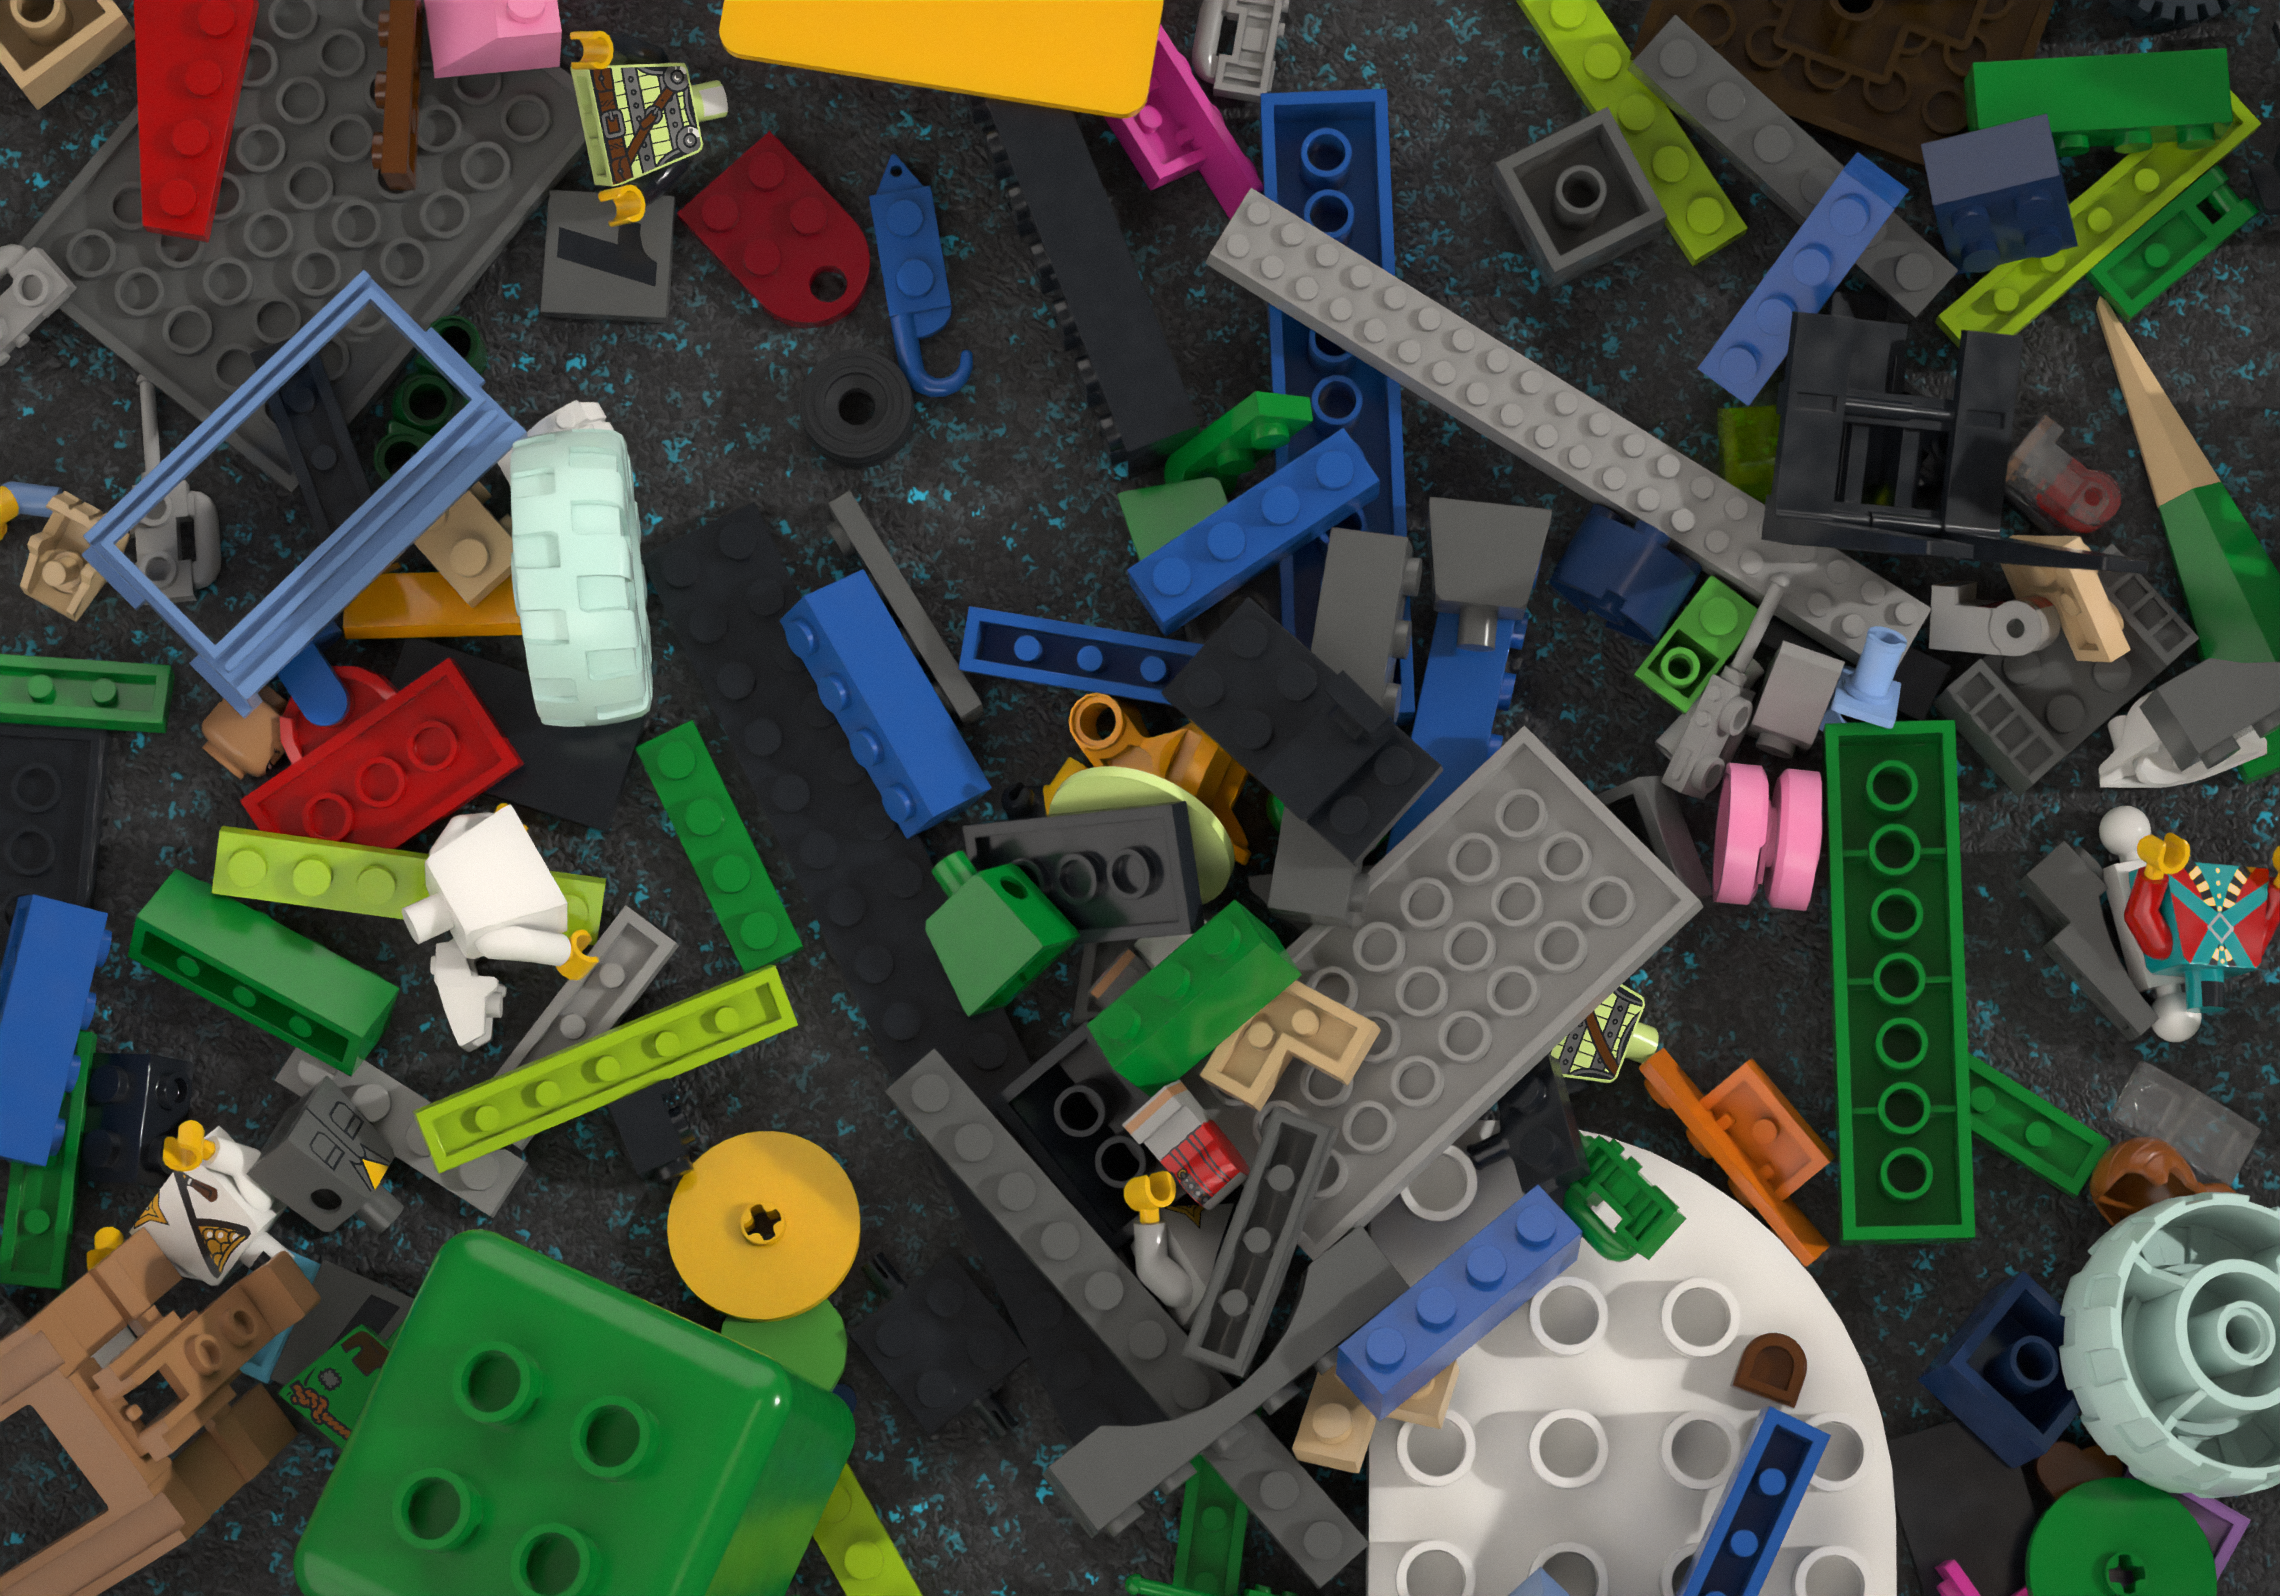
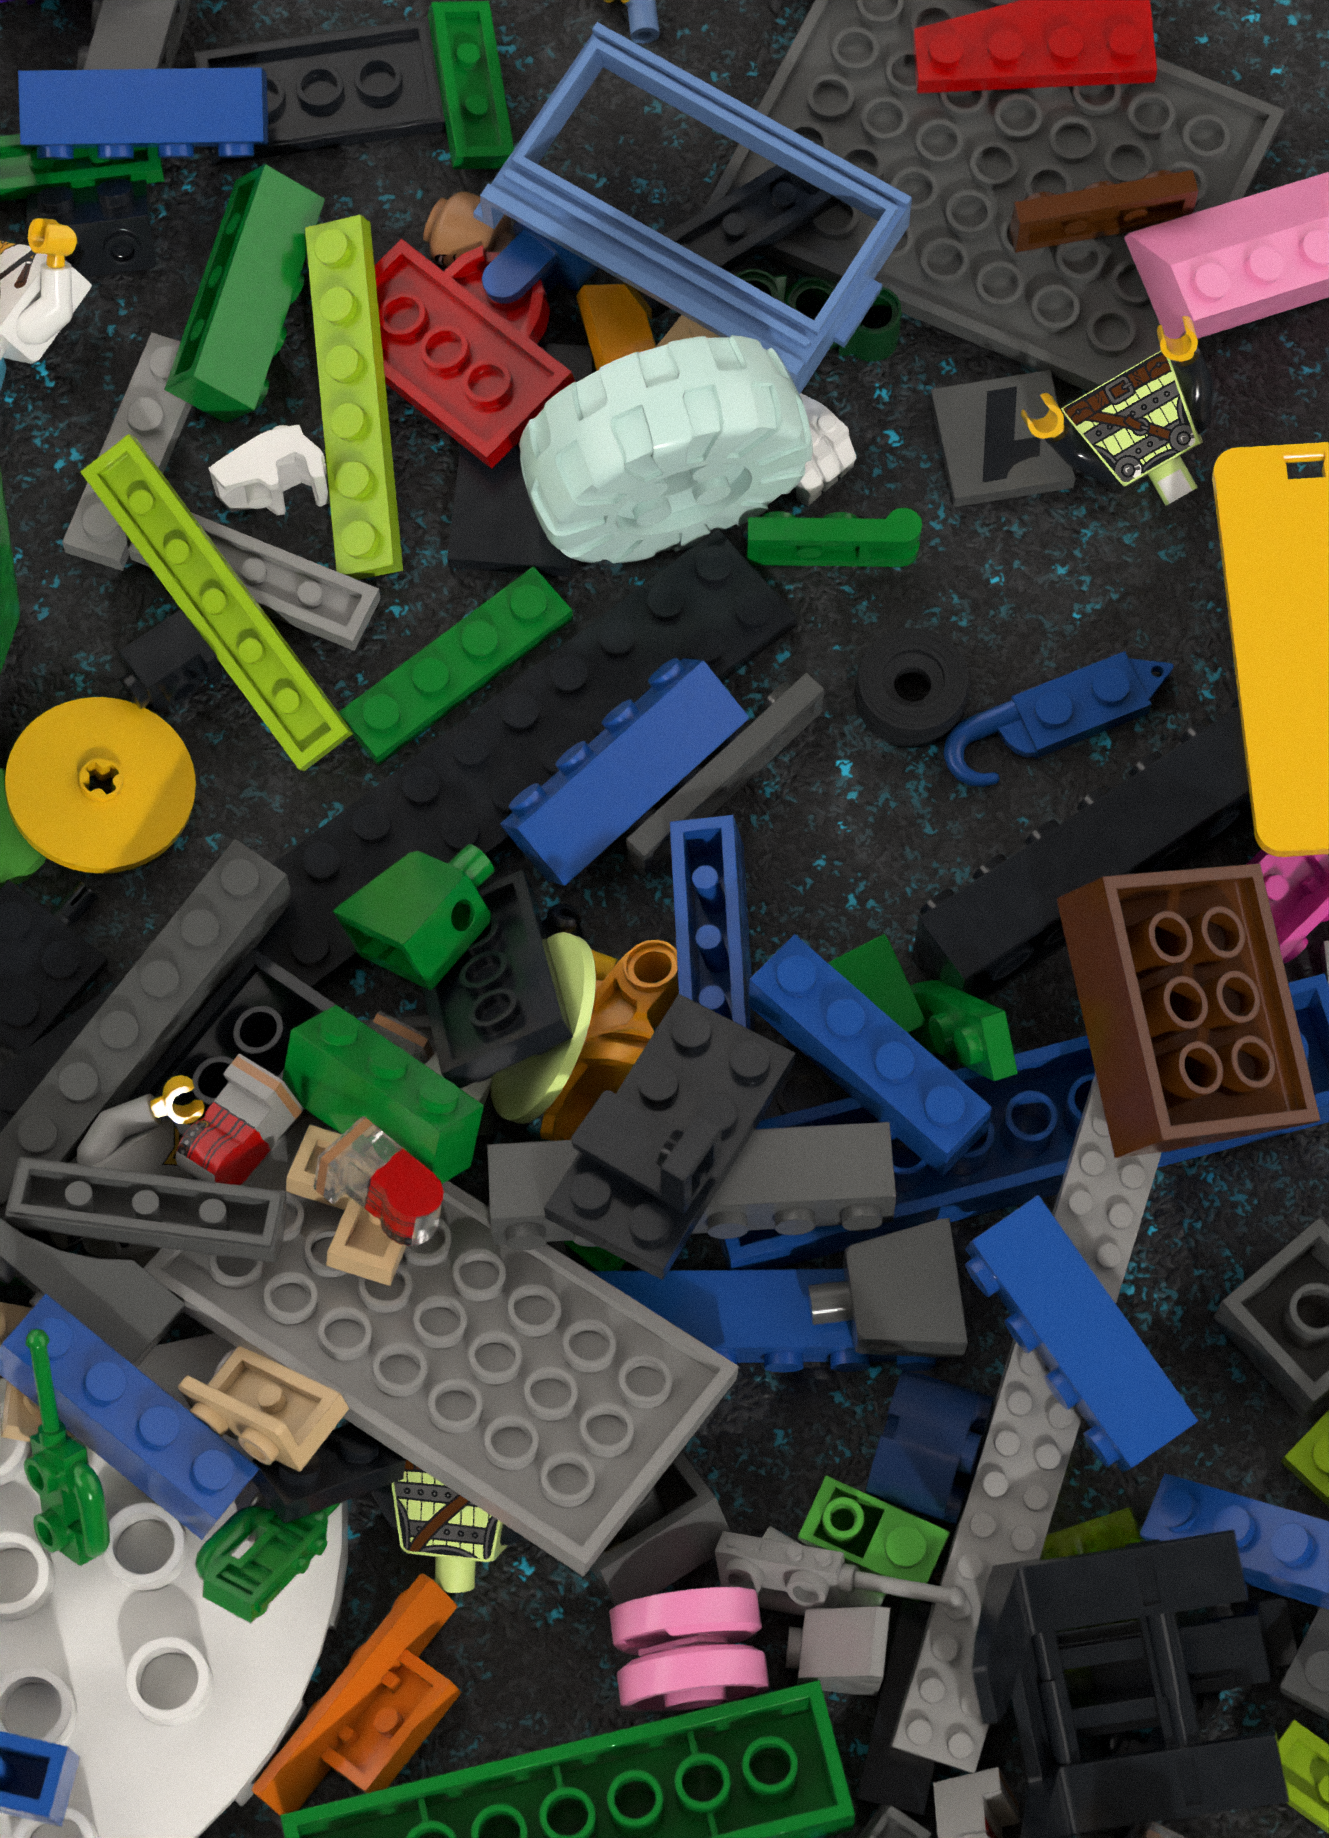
camera: 75 degrees right, 10 degrees down
(55, 565) = (572, 36): tan hand -> none
(159, 531) = (639, 122): light grey piece -> none
(328, 1162) = (76, 383): dark grey torso -> none
(496, 896) = (351, 458): white torso -> none
(682, 444) = (834, 540): none -> green plate
(778, 234) = (1067, 582): dark red plate -> none
(1287, 1008) = (382, 1181): none -> leg
(1294, 223) = (1186, 1008): none -> reddish brown slope
(1478, 1166) = (266, 1408): none -> tan bracket
(1521, 1370) = (59, 1471): none -> green piece
(1573, 405) = (1079, 1335): none -> blue brick
(1772, 1369) = (129, 1768): reddish brown tile -> none
(1869, 689) = (869, 1718): light blue bracket -> none

